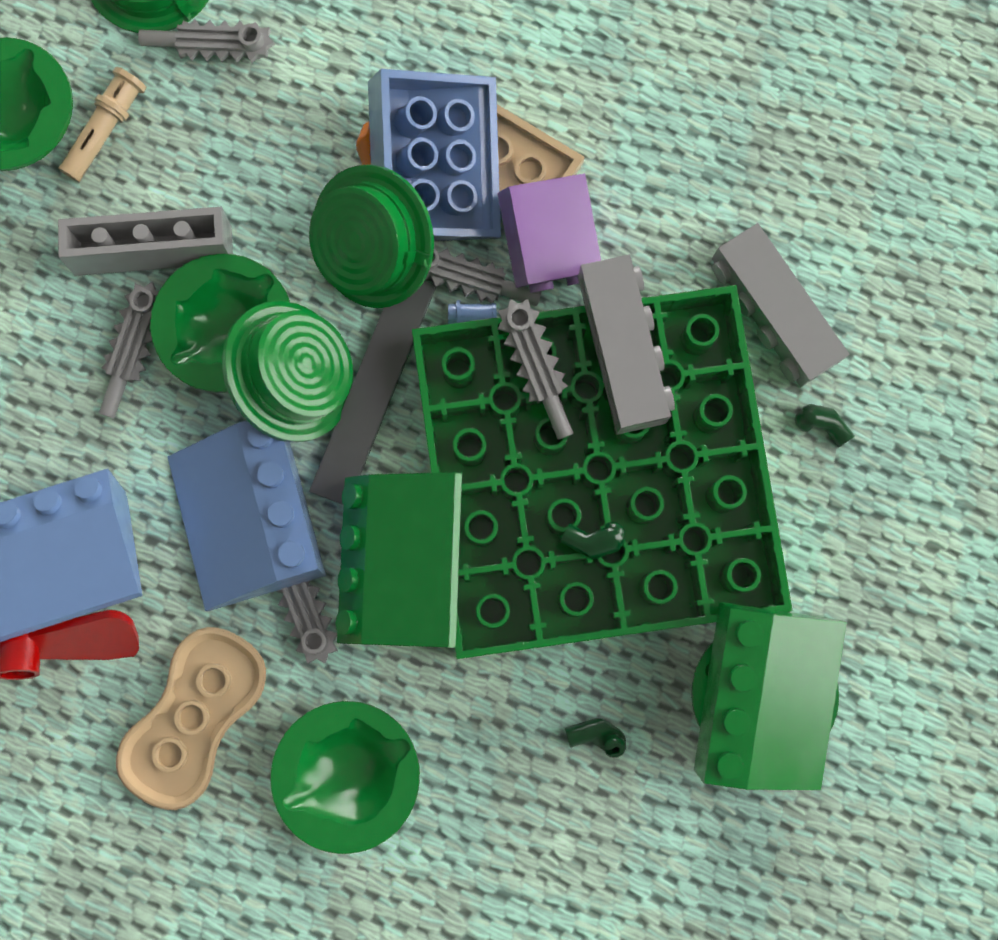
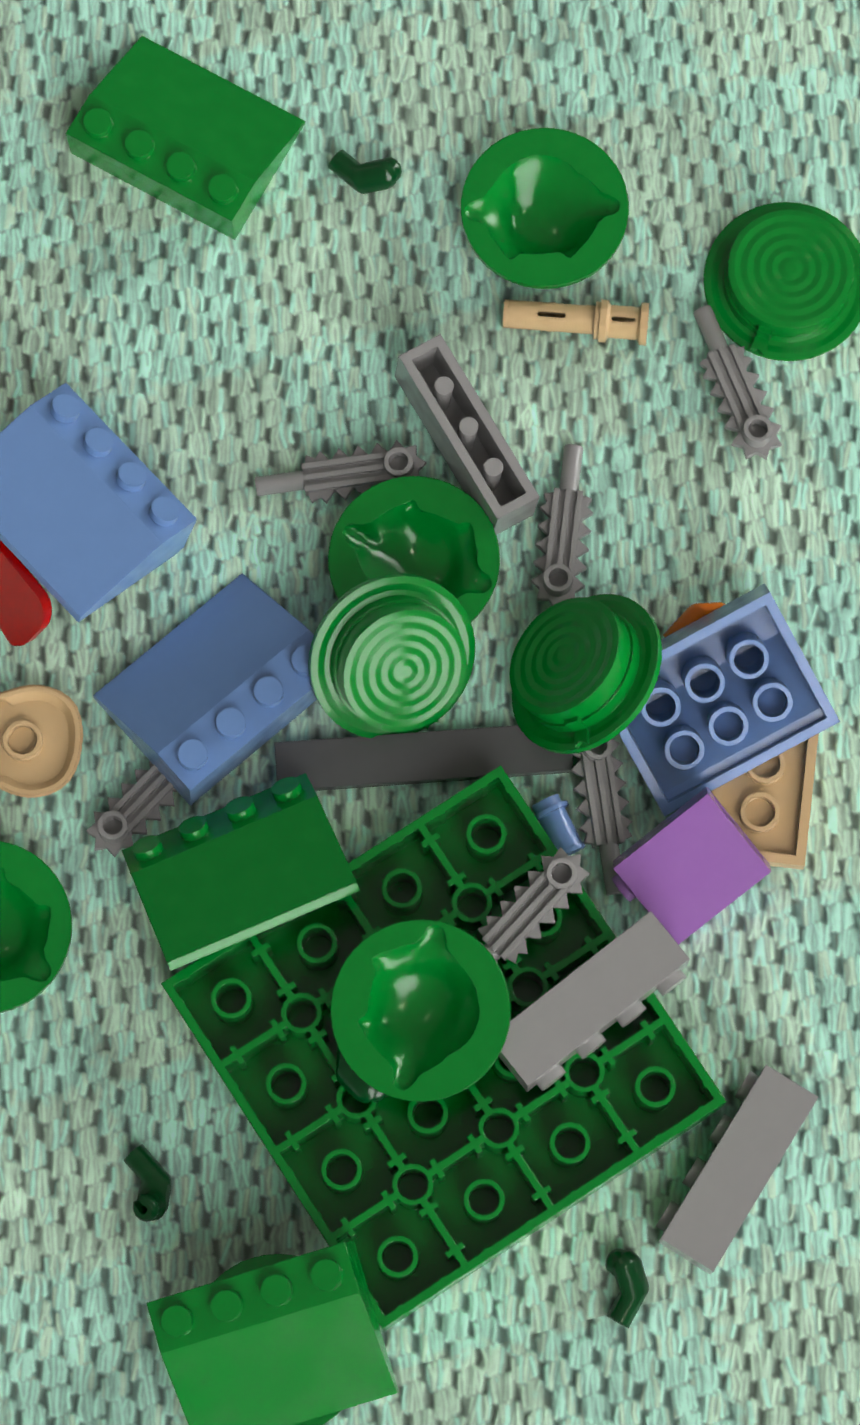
camera: 70 degrees right, 5 degrees down
(254, 209) = (564, 529): none -> light grey piece
(577, 469) = (420, 1010): none -> green piece

